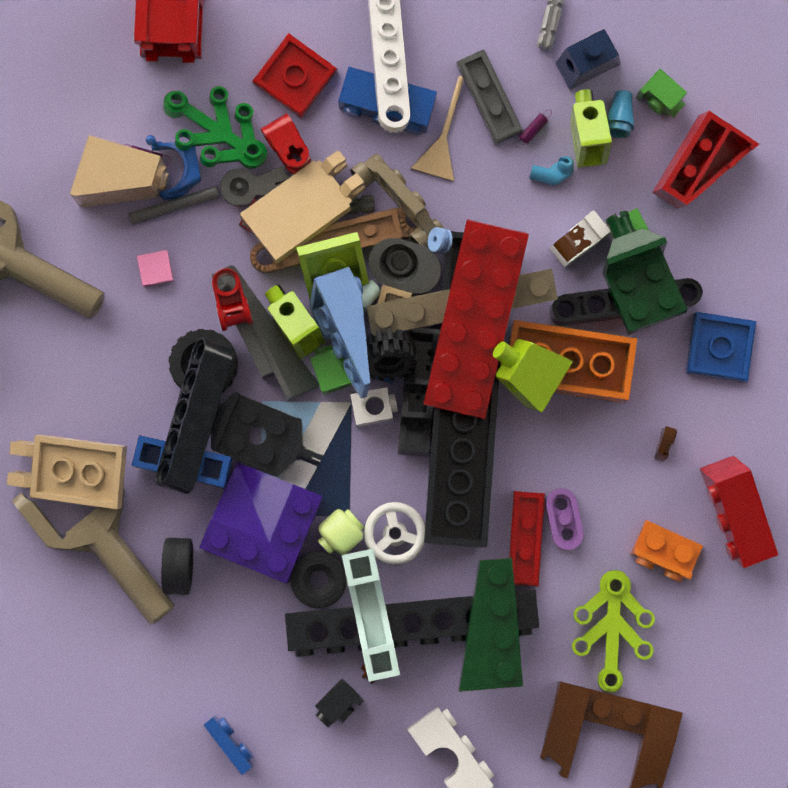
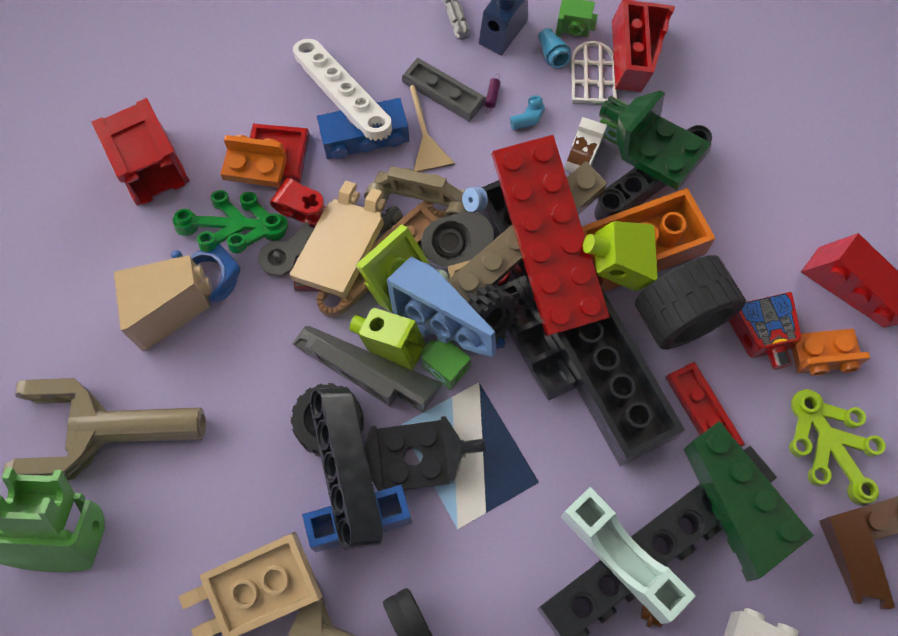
camera: 25 degrees left, 15 degrees down
(155, 268) = (239, 364): bright pink tile -> none
(174, 205) = (227, 304): dark grey bar -> none
(231, 301) = (325, 347): red piece -> none
(261, 522) = (465, 534): dark purple slope -> none
(266, 80) = (253, 161): none -> orange bracket
(301, 579) = (567, 549): black tyre -> none
(340, 532) = (542, 498): yellowish green head -> none
(364, 418) = (497, 384): white brick -> none
(389, 509) = (573, 452): white piece -> none
(564, 444) = (689, 302): none -> black tyre
(564, 519) = (728, 371): medium lavender plate -> none
(590, 130) = (540, 66): lime torso -> none
(627, 502) = (768, 328): none -> torso
(633, 166) = (601, 82): none -> white window
(666, 438) = (759, 263): reddish brown tile -> none
(720, 347) = (748, 170): blue tile -> none

